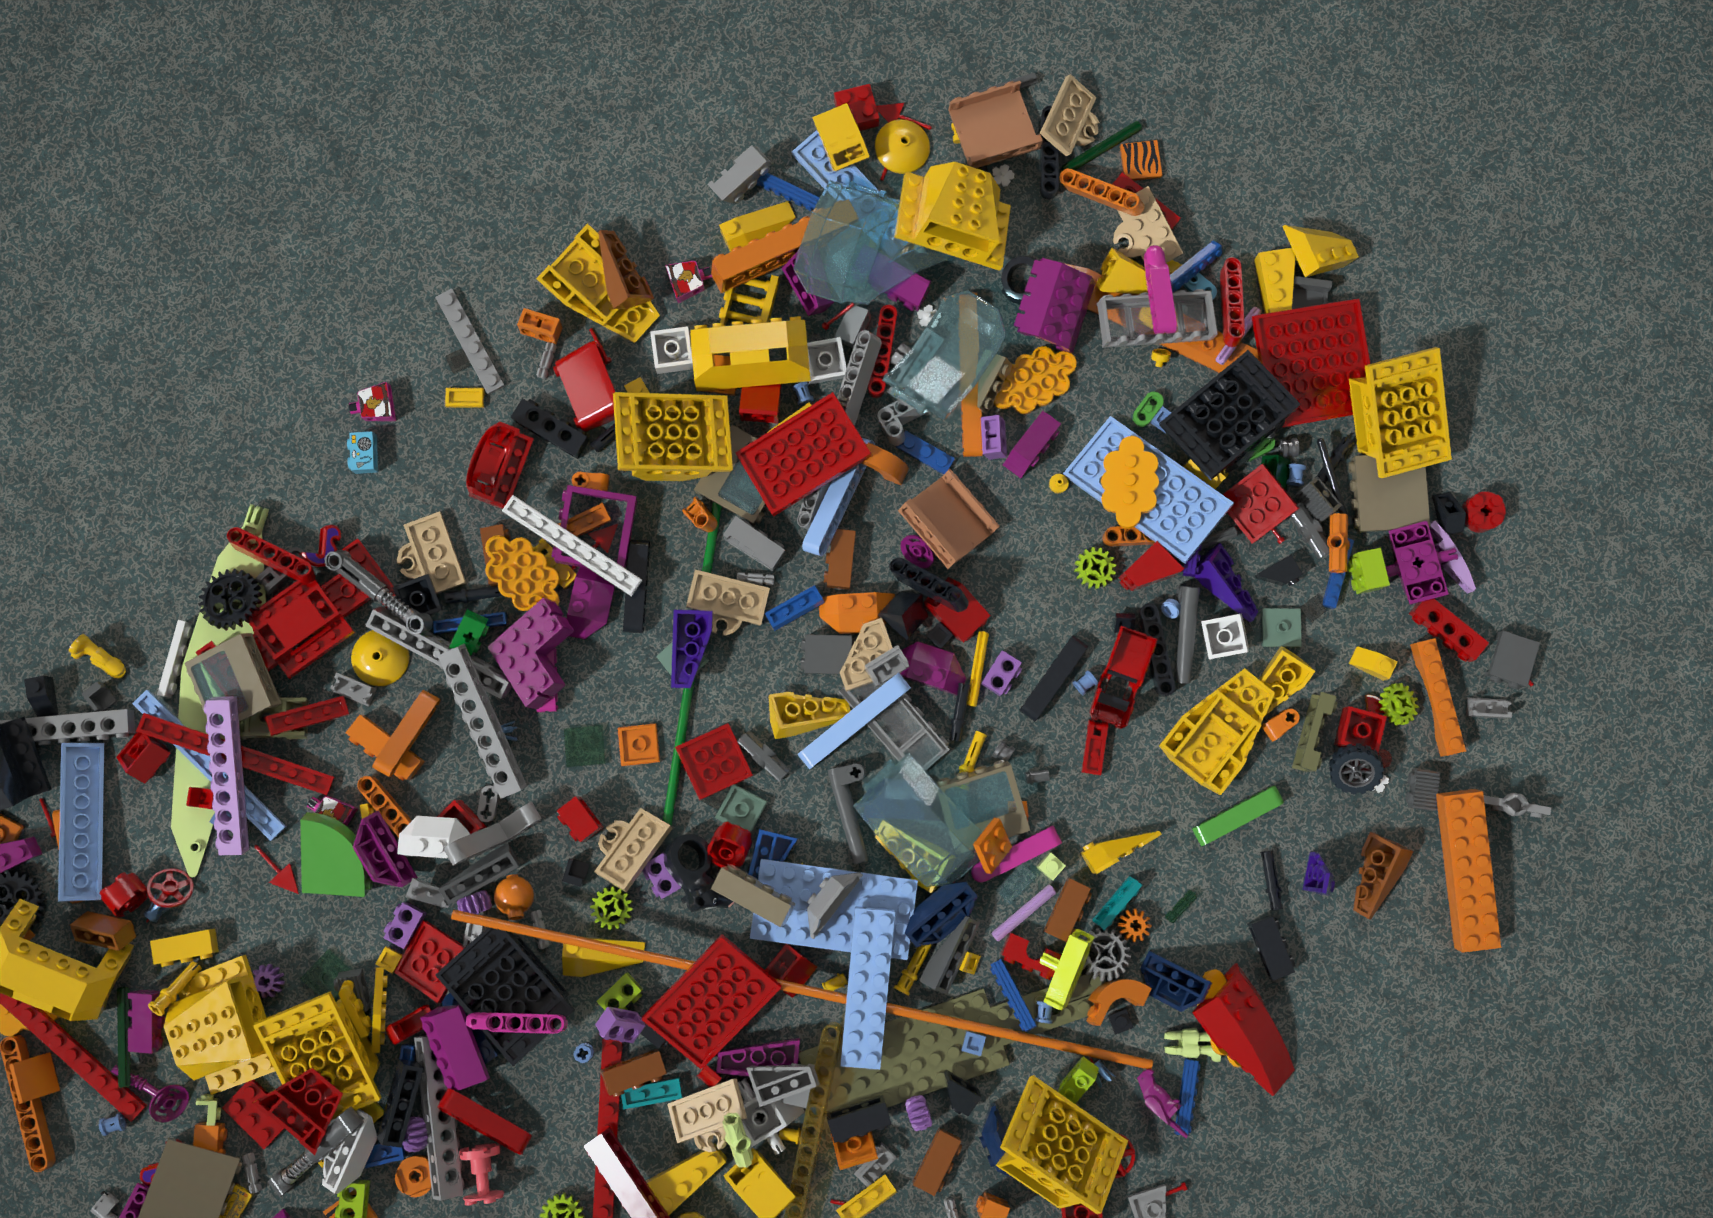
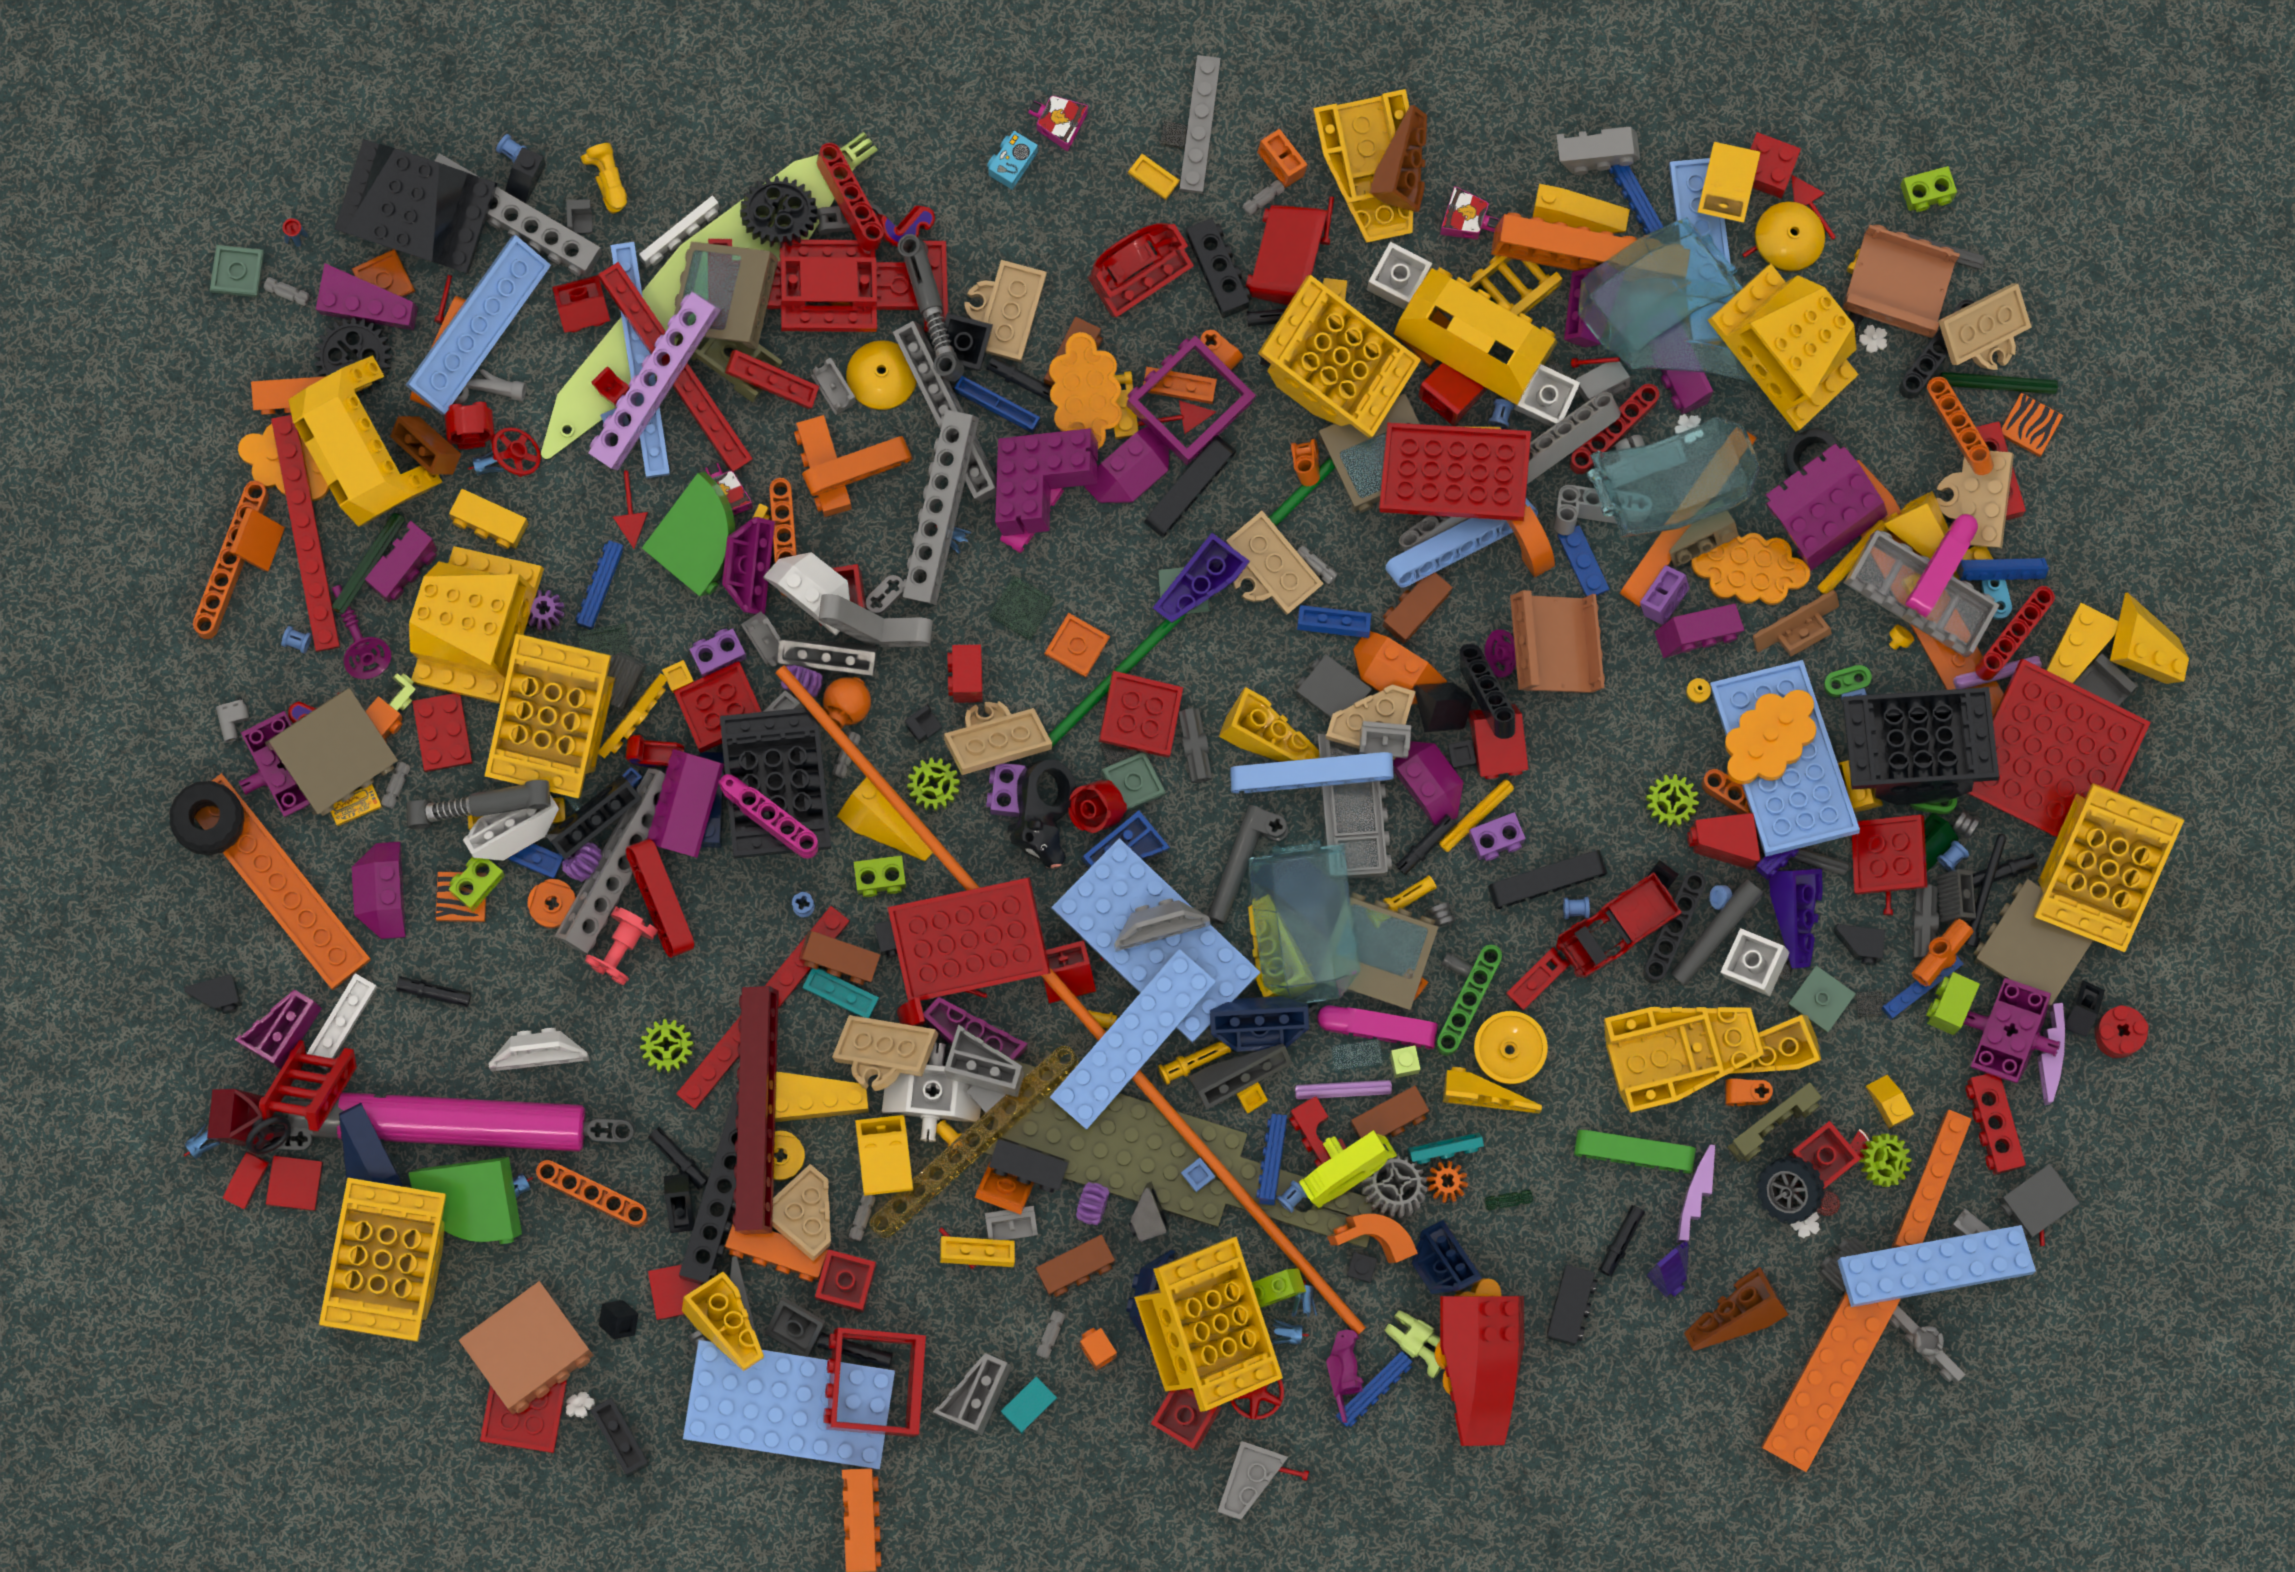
camera: 35 degrees right, 5 degrees down
(16, 684) = (509, 147): none -> medium blue bush
(122, 852) = (494, 385): none -> light grey plant
(169, 994) = (446, 552): yellow pin -> none
(293, 935) = (600, 585): none -> blue piece
(303, 1107) = (504, 747): red wedge -> none
(355, 1009) = (615, 695): yellow plate -> none
(471, 623) = (1002, 407): green brick -> none
(572, 545) = (1156, 398): white tile -> none
(620, 1025) = (860, 900): medium lavender brick -> none
(737, 1140) = (900, 1079): yellowish green piece -> none
(753, 895) = (1087, 863): dark tan wedge -> none
(754, 543) = (1340, 527): light grey wedge -> none
(964, 52) = (1926, 184): none -> lime brick
(992, 845) = (1360, 992): orange plate -> none
(1068, 801) = (1473, 989): none -> bright green beam
(1093, 328) = (1848, 561): none -> yellow axle
(1094, 396) = (1800, 627): none -> medium nougat bracket
(1111, 1101) = (1290, 1333): none -> flat silver piece
(1125, 807) = (1512, 1030): none -> yellow dish
(1294, 807) = (1699, 1186): none -> lavender slope
(1487, 753) = (1936, 1266): none -> light blue plate

